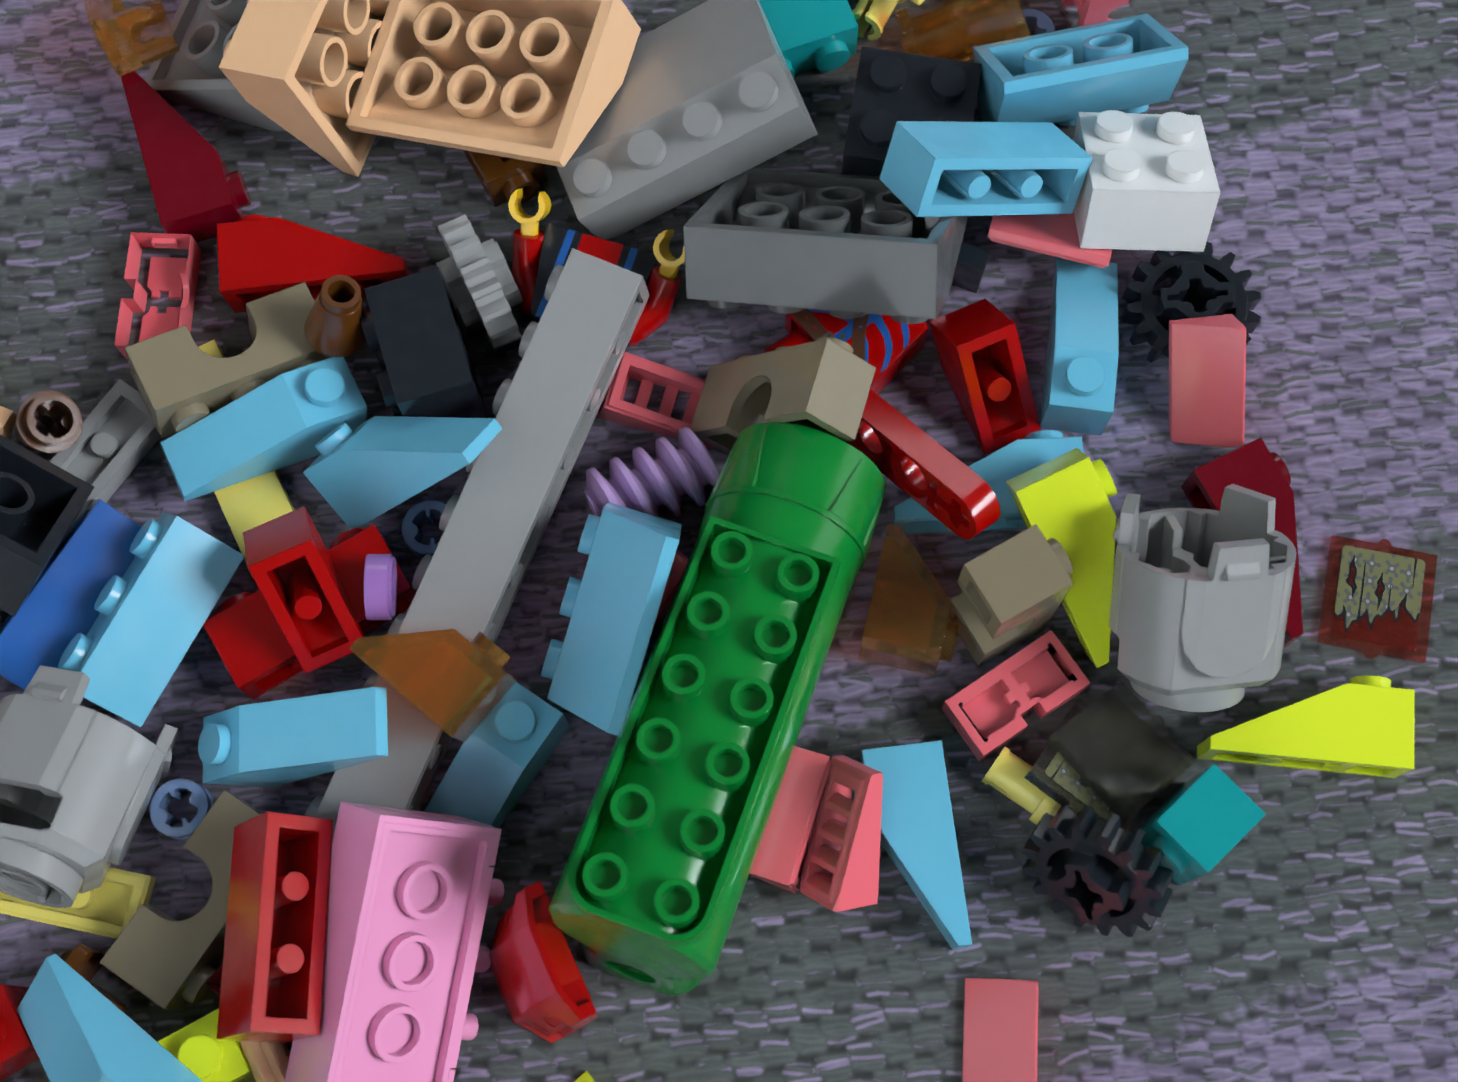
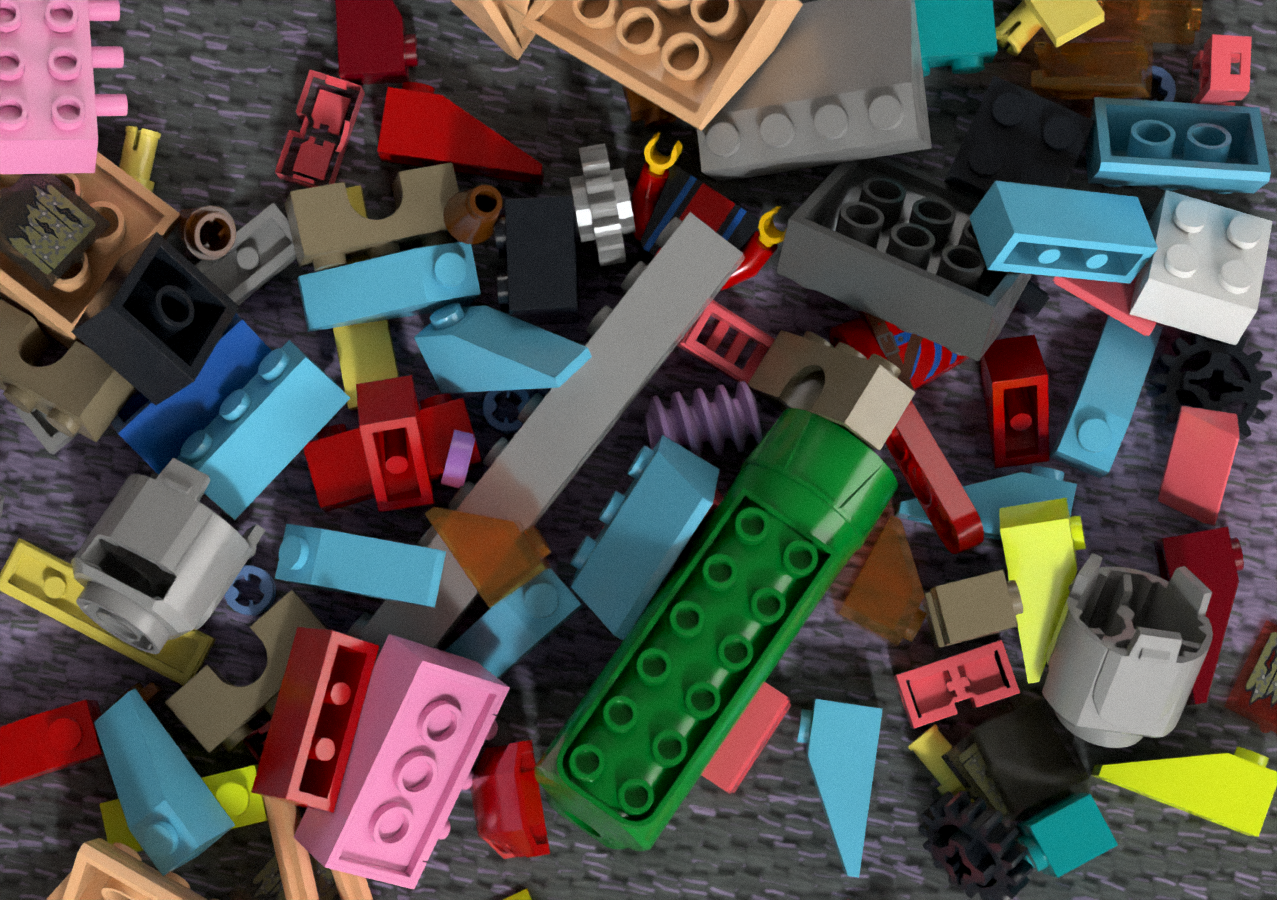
camera: 15 degrees right, 10 degrees up
(846, 838) = (781, 768): coral slope -> none

